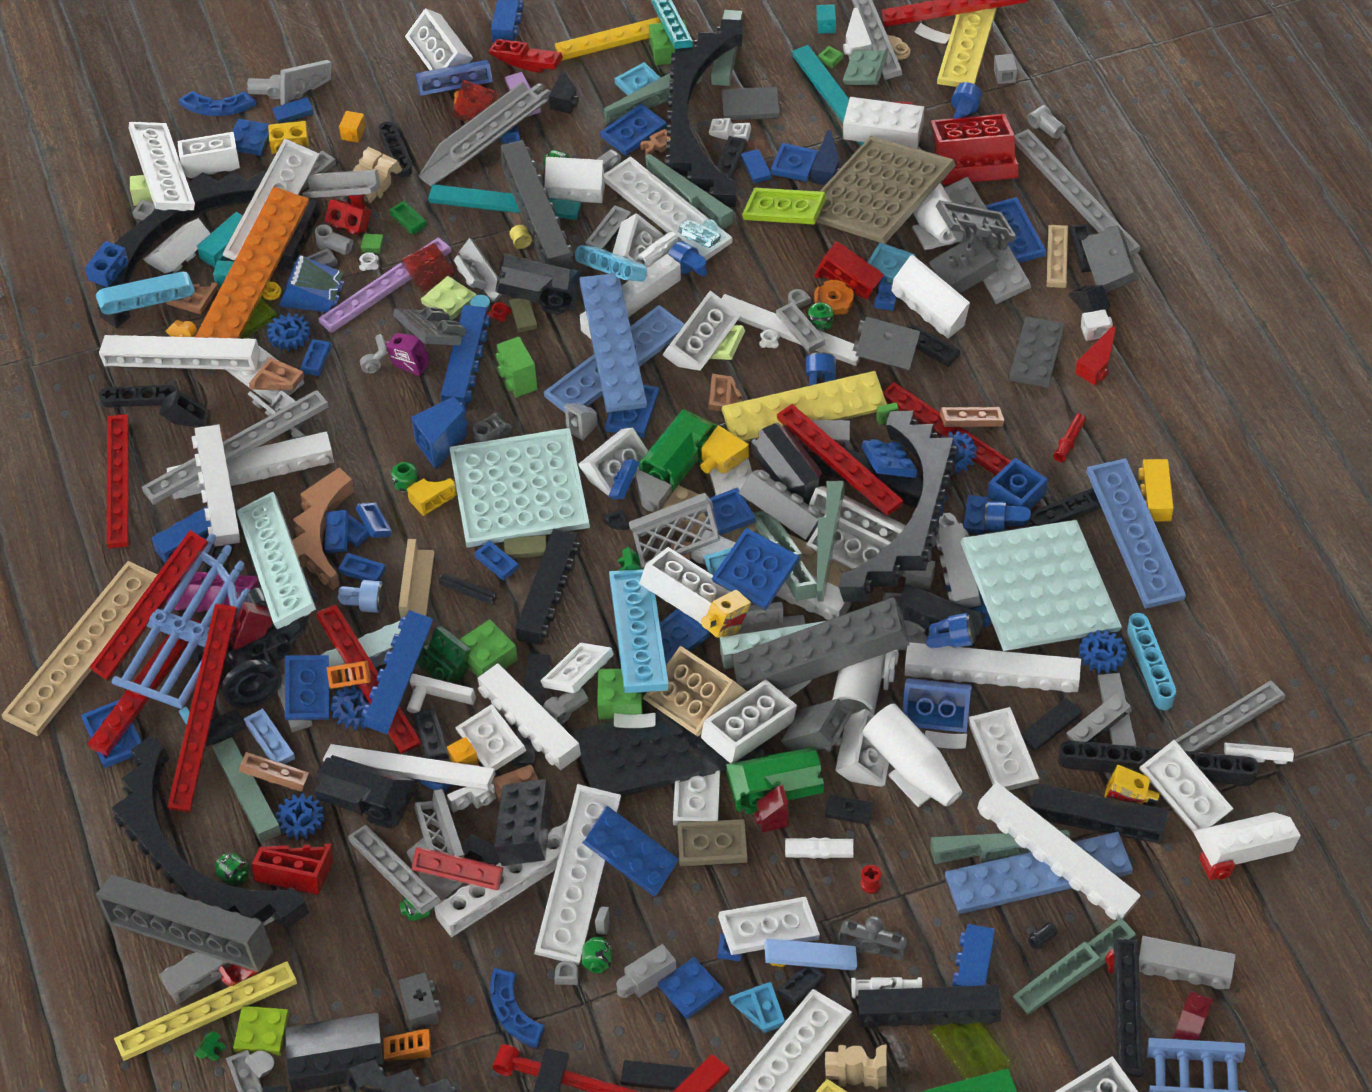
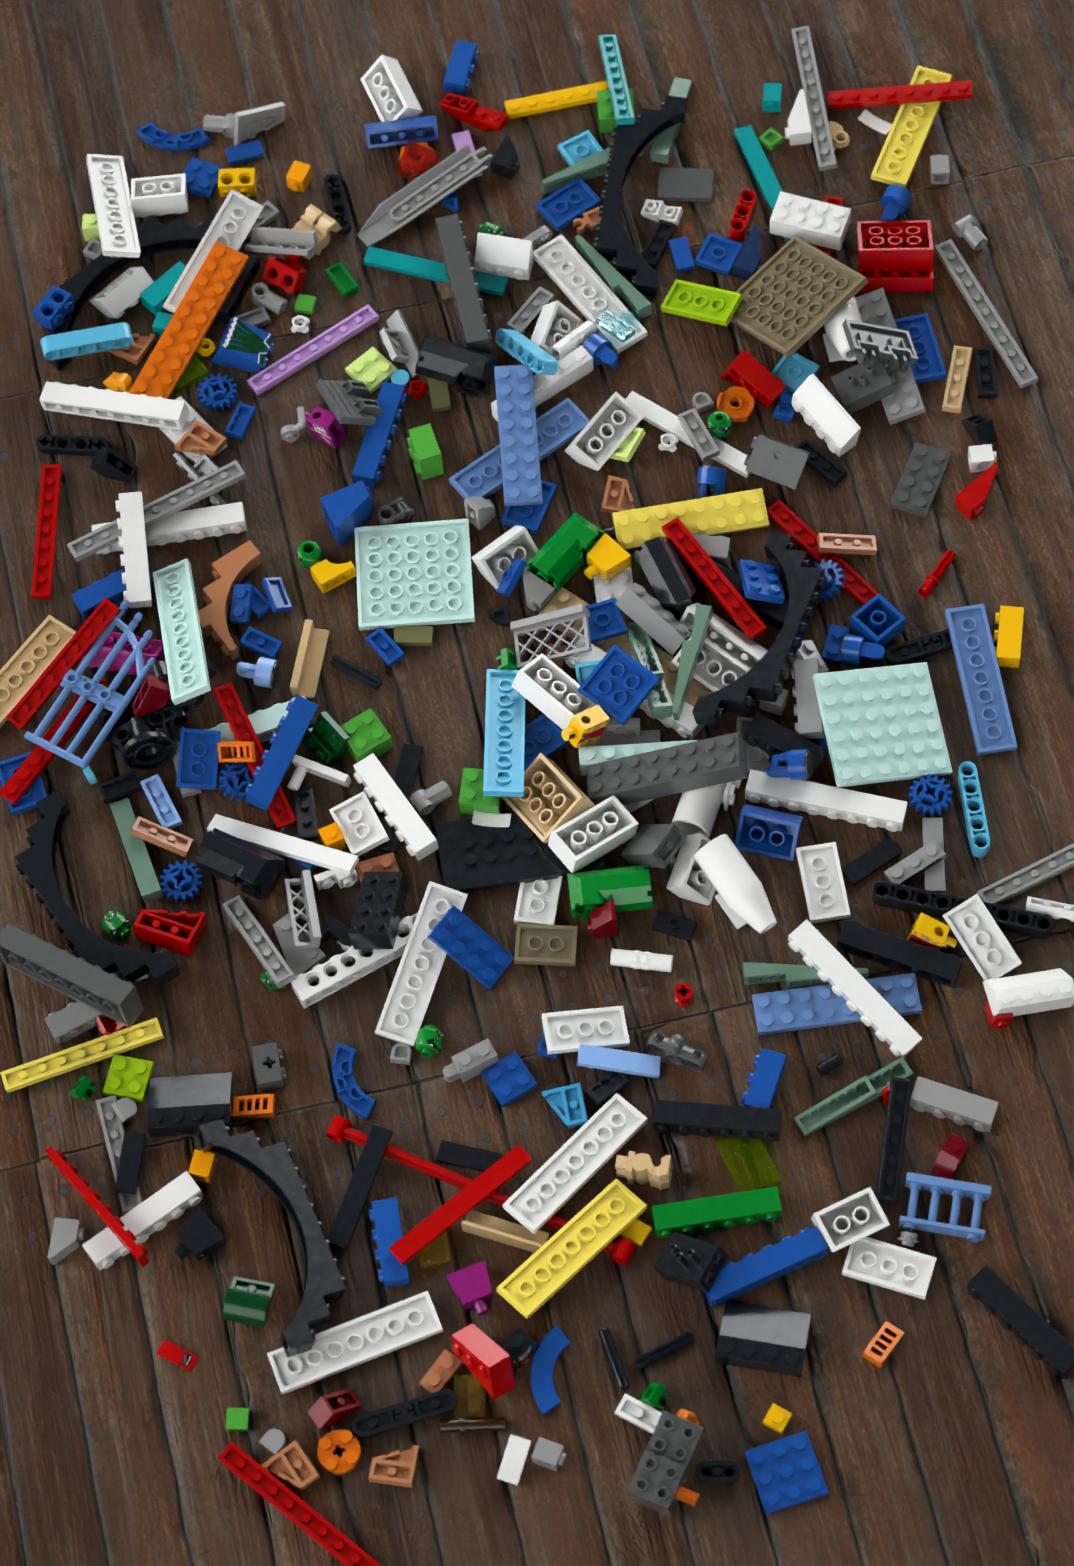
camera: 10 degrees right, 10 degrees up
(202, 708) = (103, 769): red plate -> none
(428, 267) = (355, 336): clear red plate -> none
(457, 868) = (314, 948): red tile -> none
(520, 236) = (446, 311): light yellow wheel -> none
(547, 587) = (428, 678): black brick -> none
(577, 667) = (445, 763): white plate -> none
(602, 921) = (438, 1009): light grey tile -> none
(813, 124) = (740, 224): none -> red beam
(865, 67) = (802, 156): sand green plate -> none
(883, 412) = (764, 530): bright green tile -> none
(886, 983) = (680, 1095): white piece -> none
(945, 740) = (772, 866): white sticker -> none
(1110, 258) = (1004, 391): dark grey piece -> none

